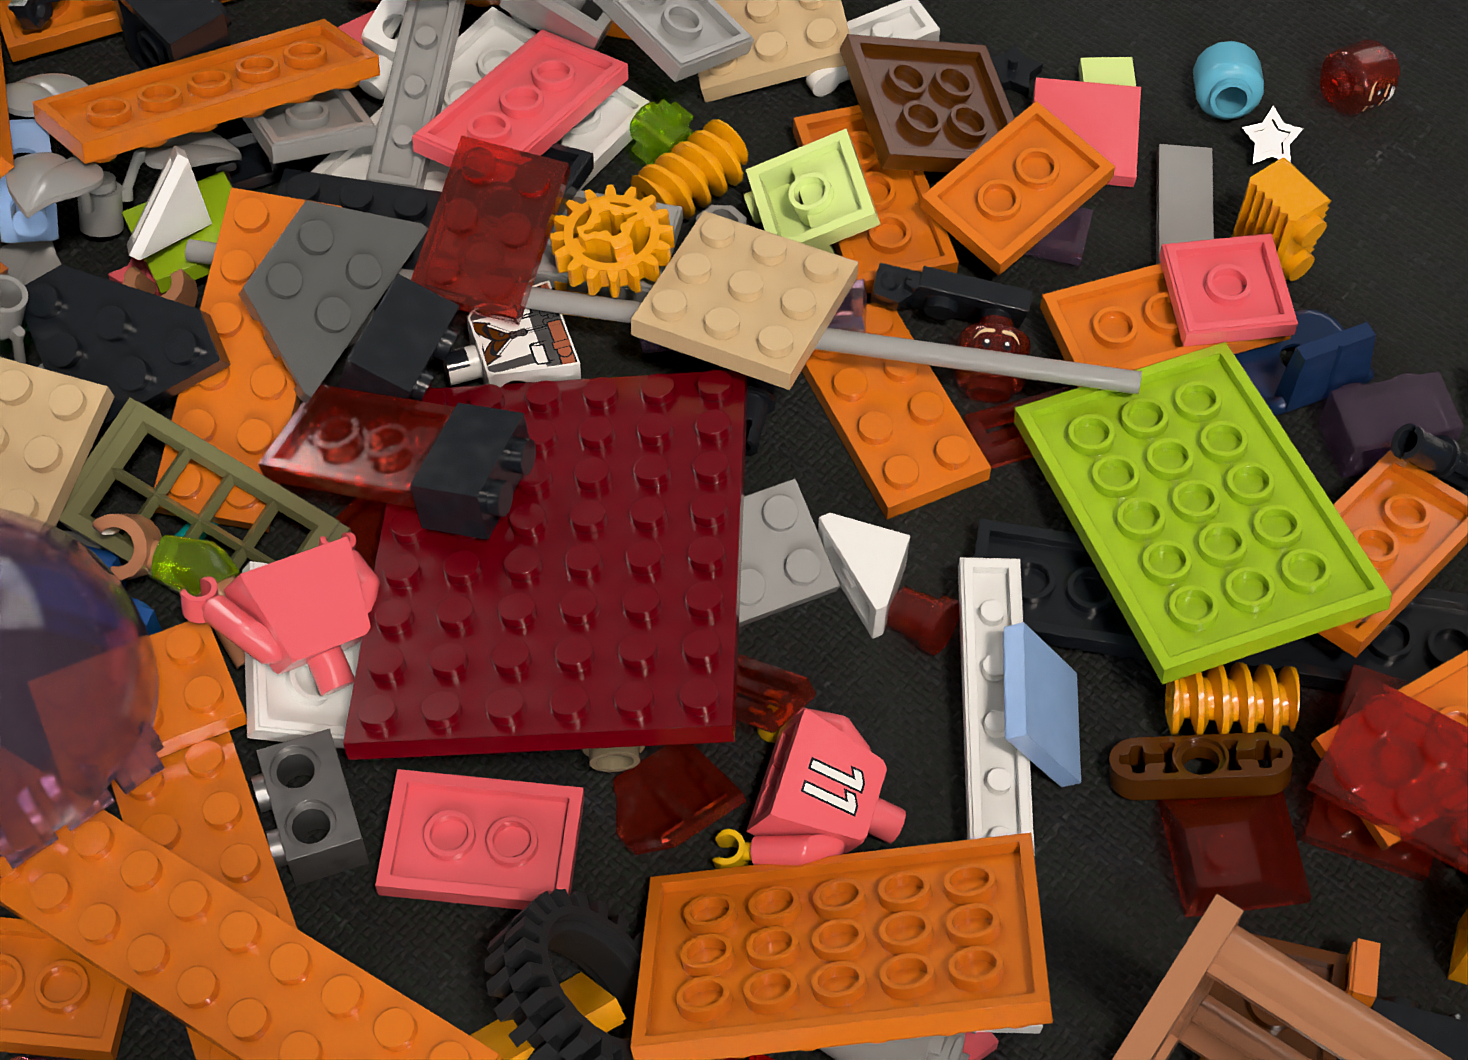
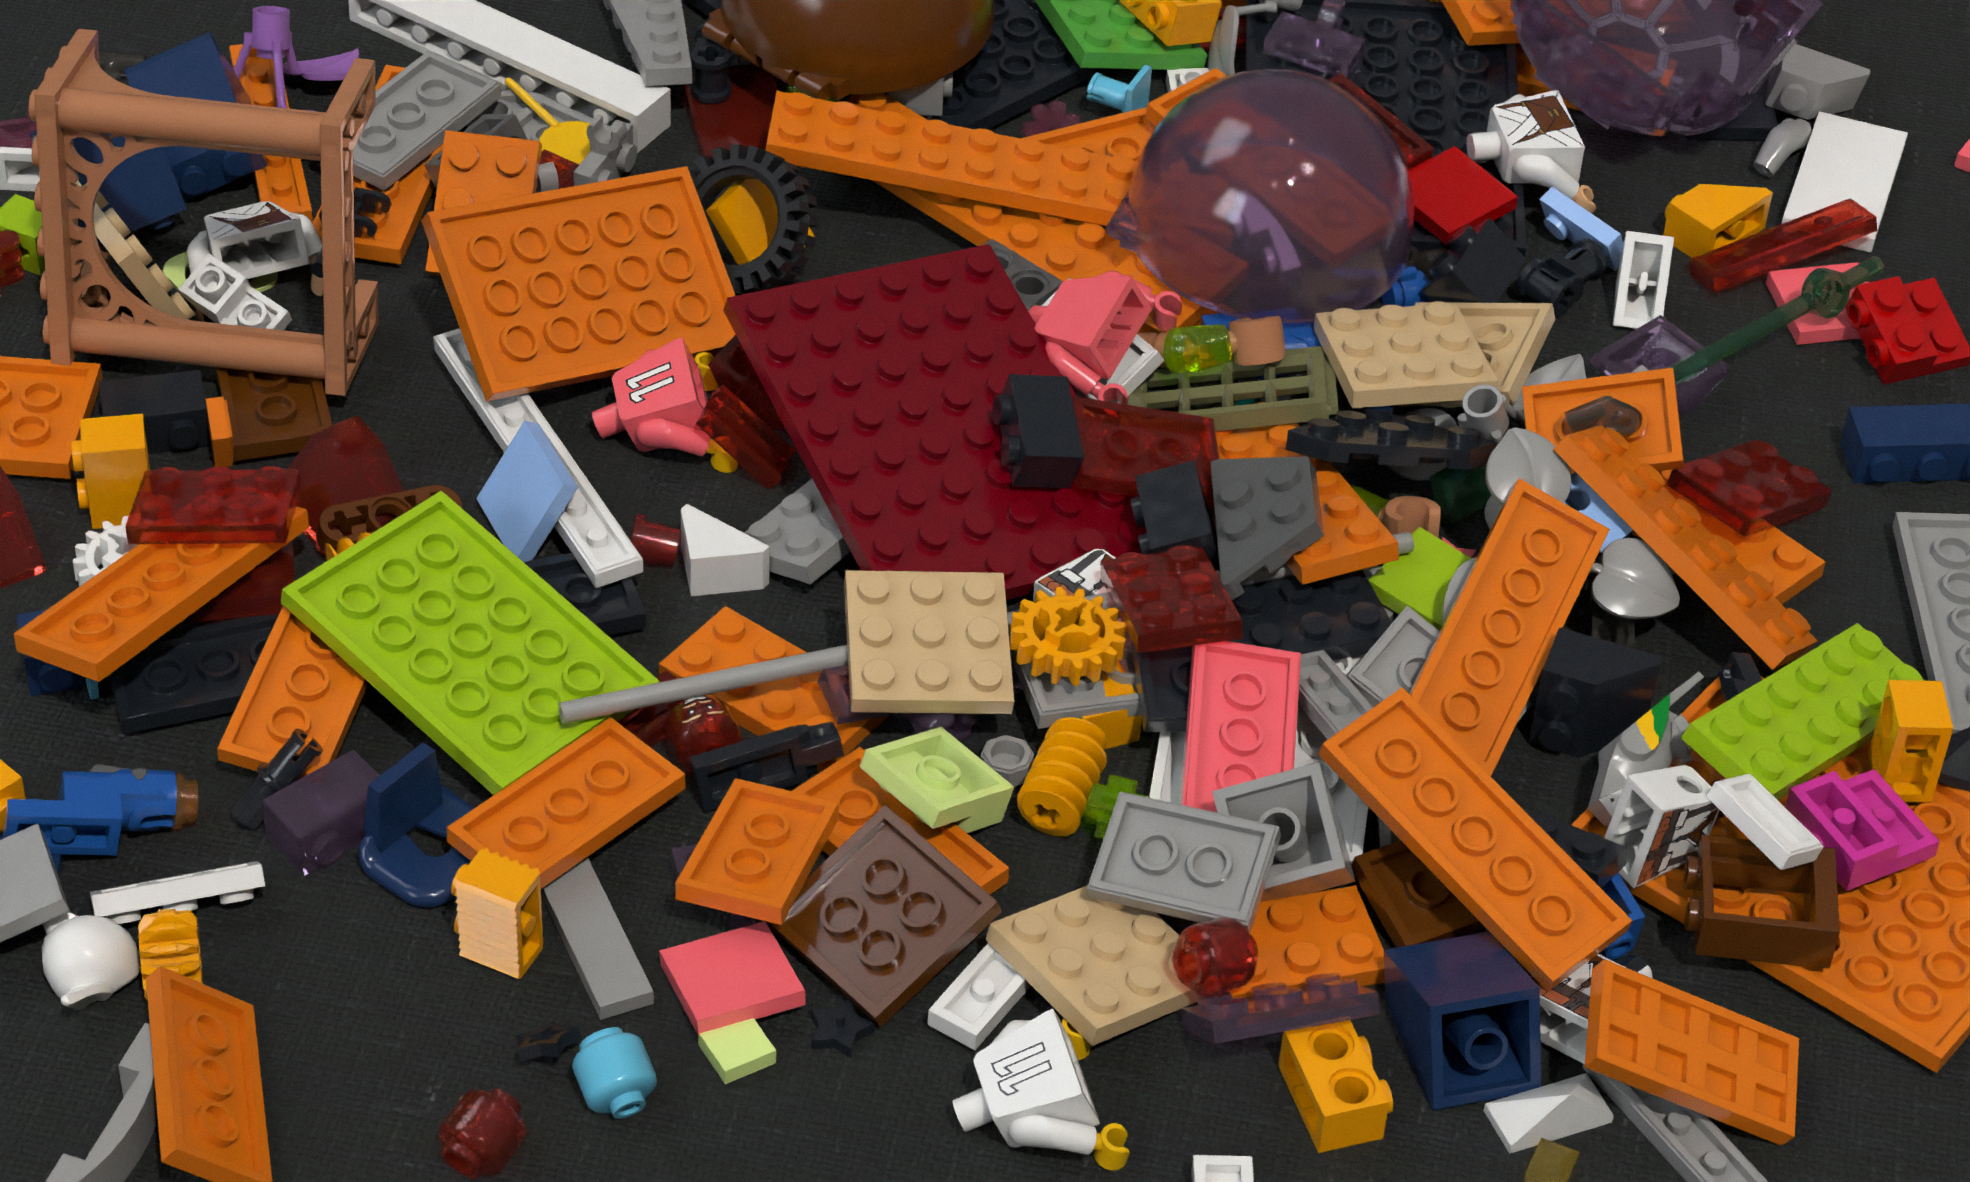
camera: 150 degrees right, 15 degrees down
(172, 209) = (1445, 545): white slope -> none
(1227, 290) = (522, 819): coral tile -> none

